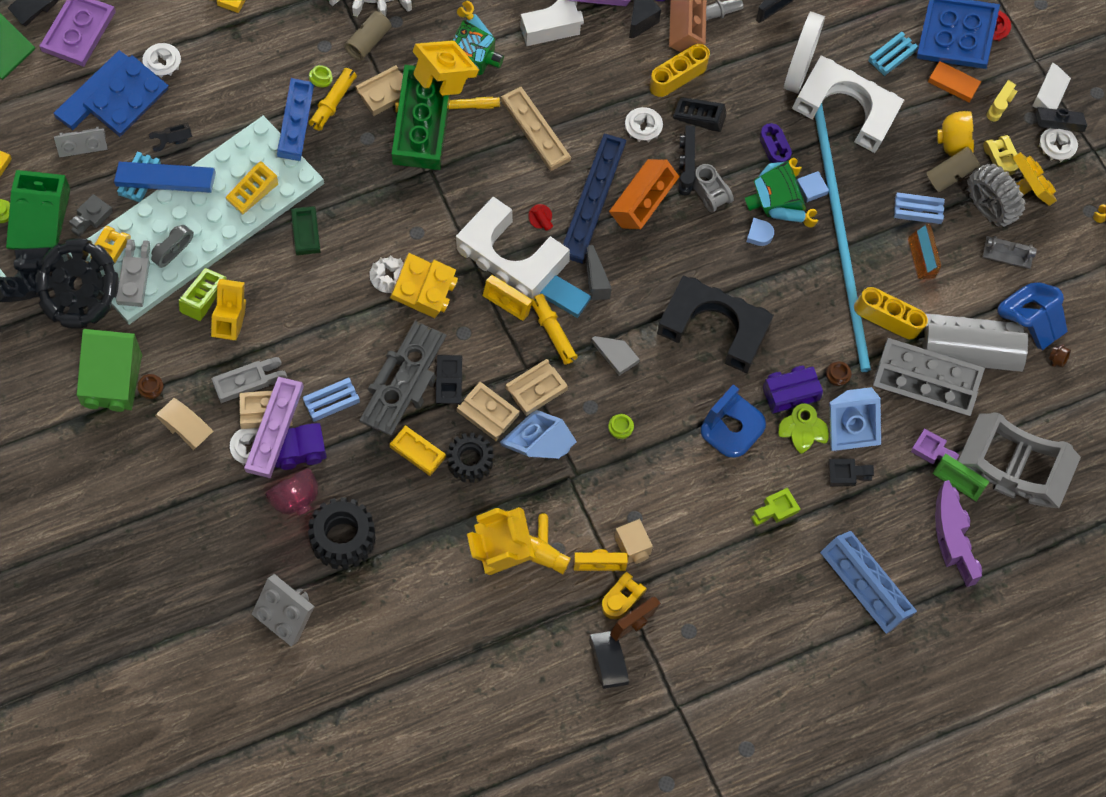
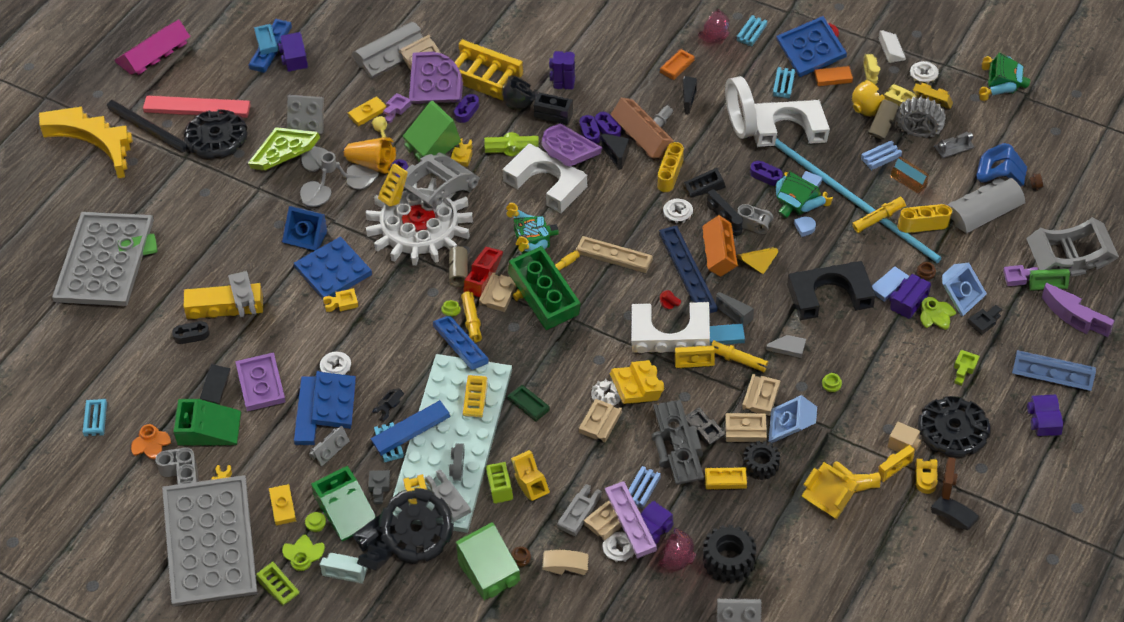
camera: 30 degrees left, 15 degrees down
(353, 299) = (600, 420): none -> tan plate
(384, 56) = (482, 270): none -> red slope
(445, 63) = (531, 241): yellow panel -> none
(676, 236) = (759, 259): none -> yellow slope
(702, 581) = (954, 436): none -> black plate
(720, 437) = (895, 350): blue piece -> none
(785, 358) = (888, 283): none -> light blue tile
(807, 625) = (1046, 415): none -> dark purple brick
(851, 275) = (879, 214): none -> yellow pin
(928, 376) = (978, 237): light grey brick -> none
(1061, 119) = (912, 58): black plate -> none

